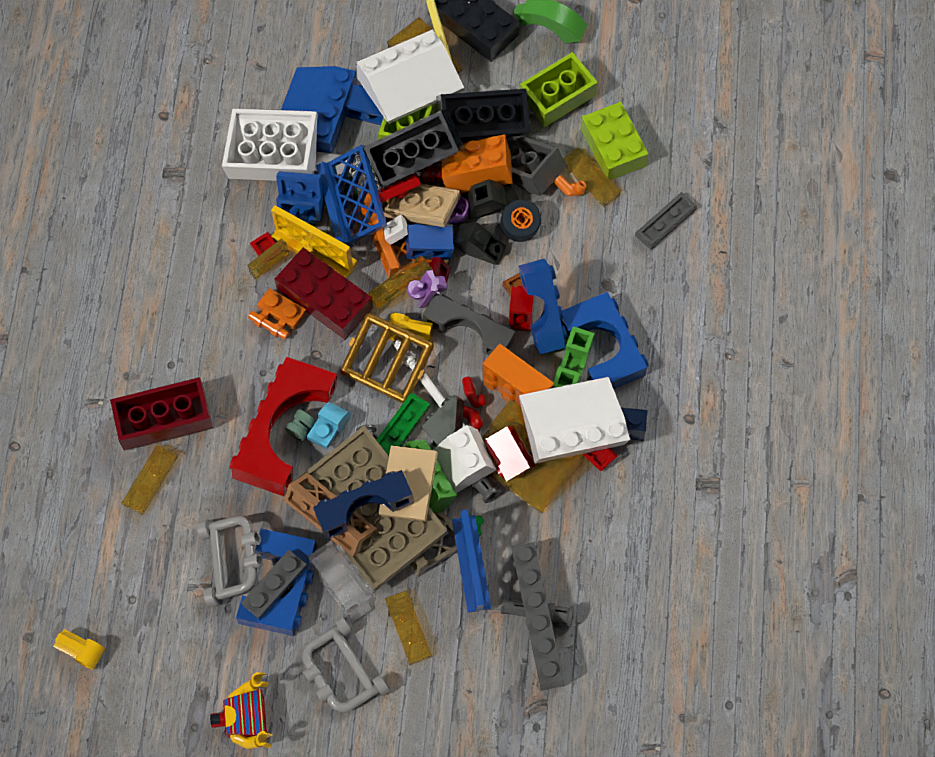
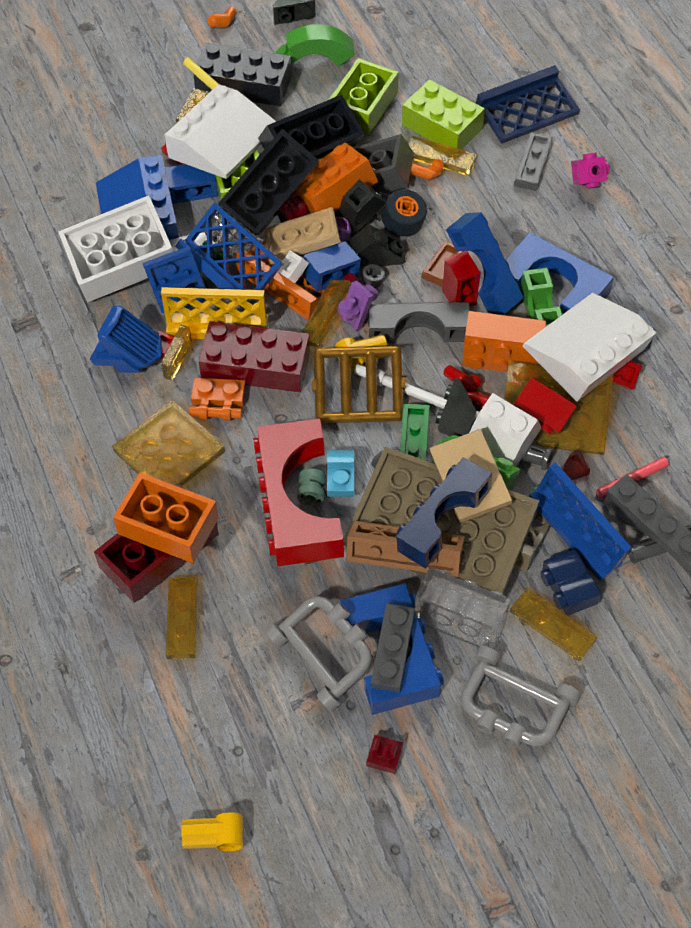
camera: 30 degrees left, 10 degrees down
(168, 402) = (166, 517): none -> orange brick
(216, 339) = (169, 446): none -> clear yellow plate
(227, 657) = (384, 754): none -> dark red tile
(234, 233) = (126, 343): none -> blue piece
(245, 715) = (448, 803): torso -> none
(399, 188) = (273, 229): red plate -> none
(439, 603) = (570, 582): none -> dark blue brick
(464, 258) = (377, 271): none -> dark grey bush
(510, 512) = (576, 465): none -> clear red tile
(553, 544) = (637, 475): none -> coral bar
(693, 145) = (515, 91): none -> dark blue fence
(701, 255) = (590, 170): none -> dark pink brick

